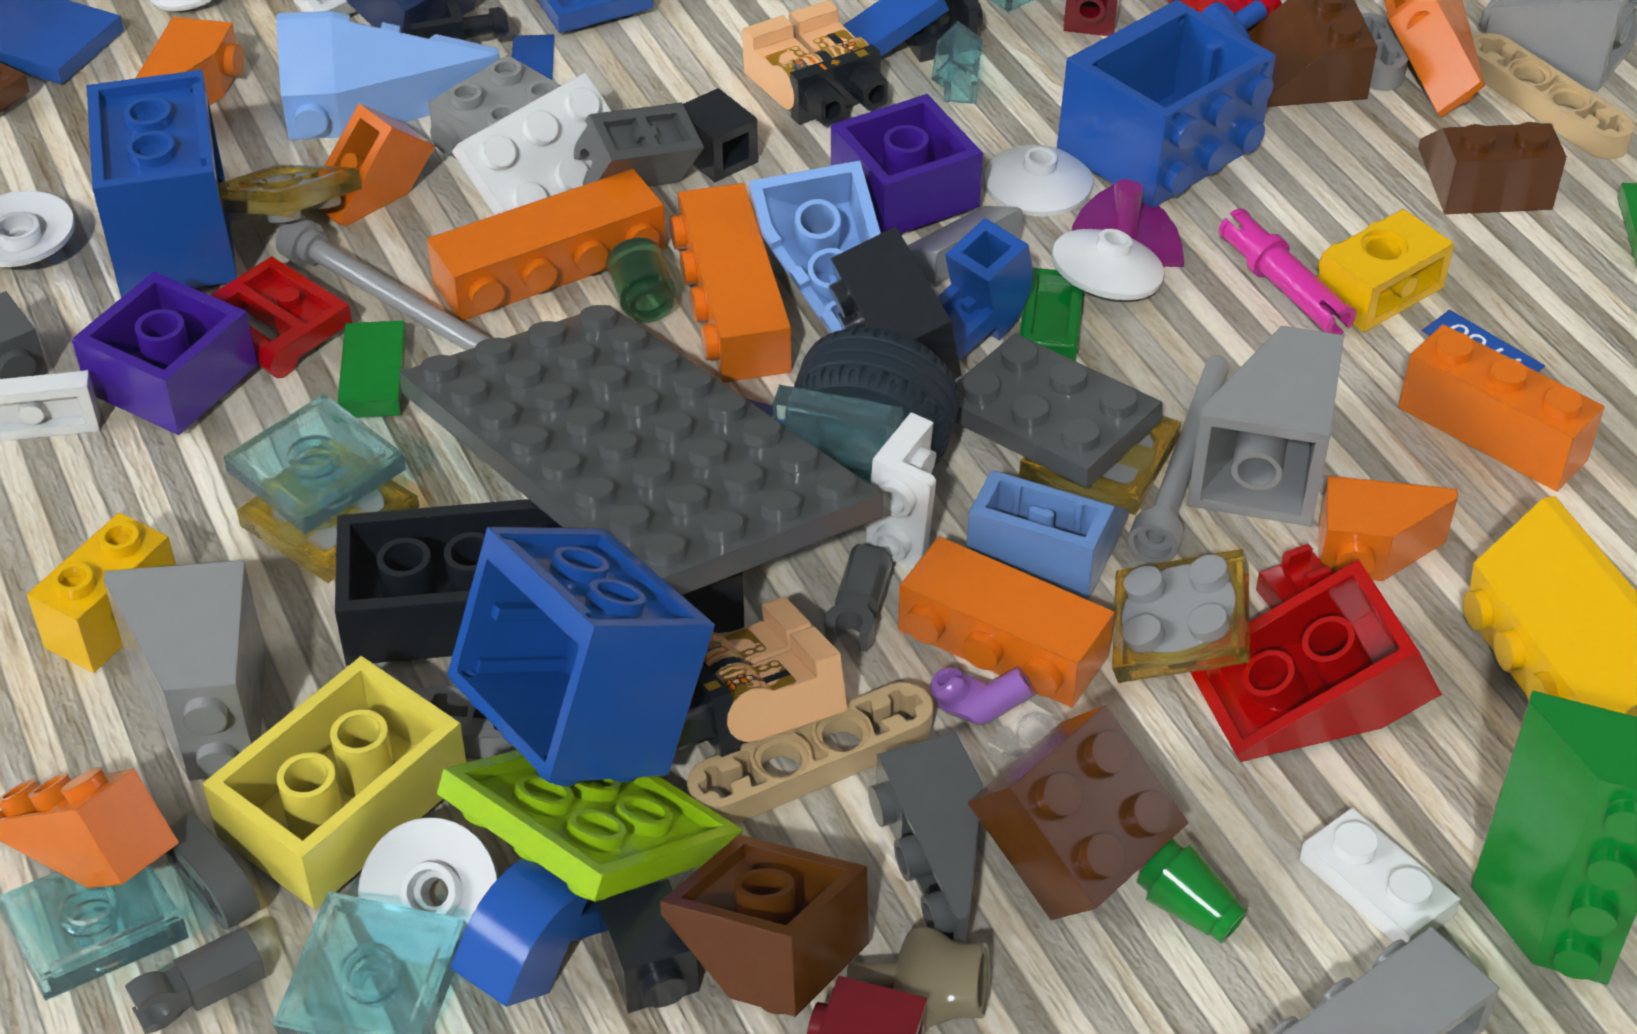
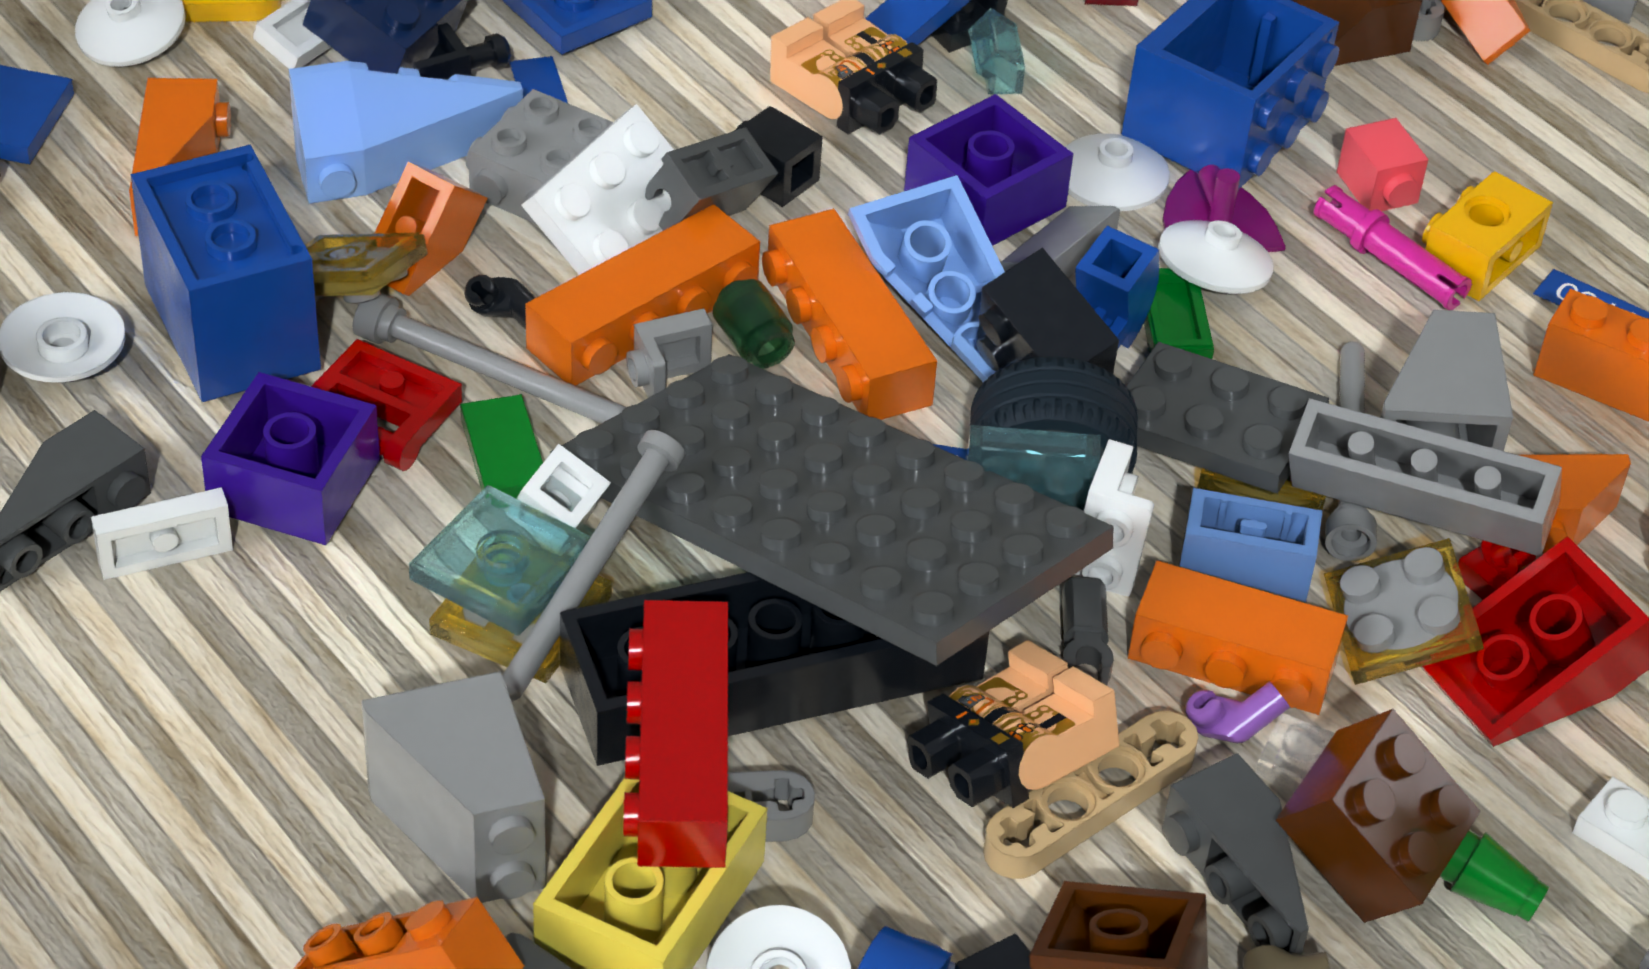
camera: 15 degrees left, 0 degrees up
(73, 600) = (320, 727): yellow brick -> none
(390, 642) = (683, 735): none -> red brick
(392, 408) = (564, 488): none -> white brick
(411, 231) = (498, 297): none -> black arm
(476, 381) = (658, 455): none -> light grey bar
(551, 292) = (669, 349): none -> light grey bracket
(578, 653) = (871, 723): blue container -> none
(589, 834) = (918, 881): lime plate -> none
(1229, 485) = (1425, 476): none -> light grey brick
(1299, 196) = (1382, 165): none -> coral brick
(1494, 167) = (1559, 116): reddish brown slope -> none

